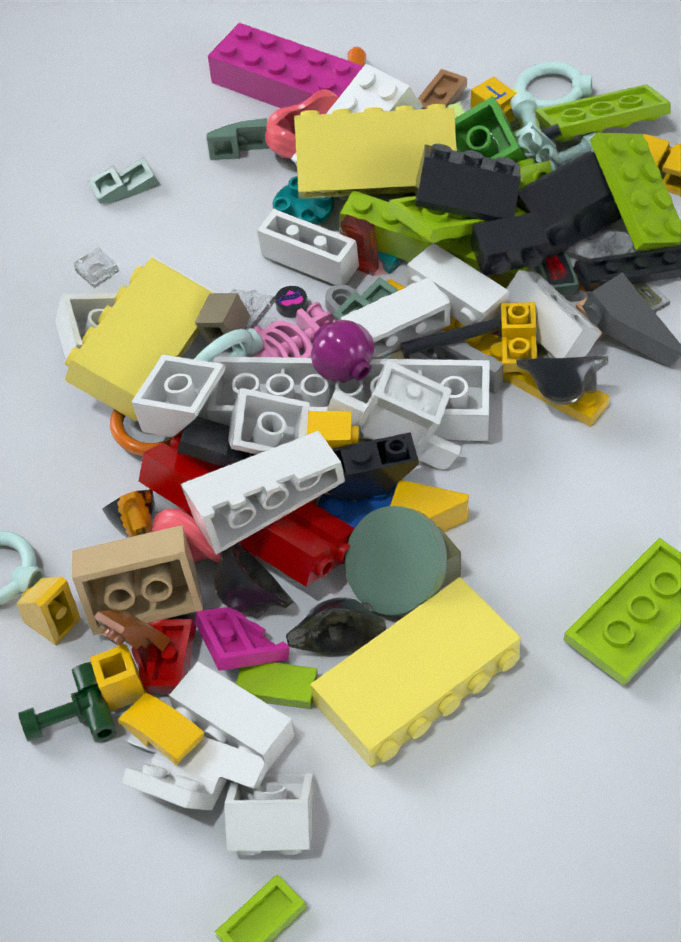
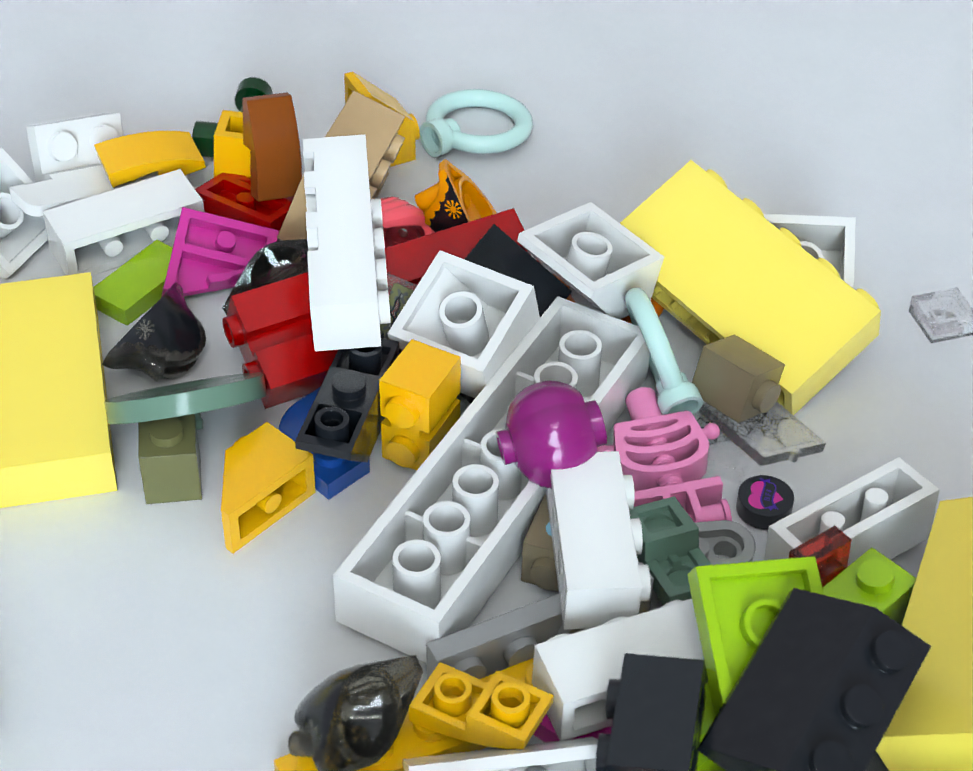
camera: 110 degrees right, 10 degrees down
(403, 405) = (404, 471): white plate -> none
(450, 336) = (529, 607): black bar -> none

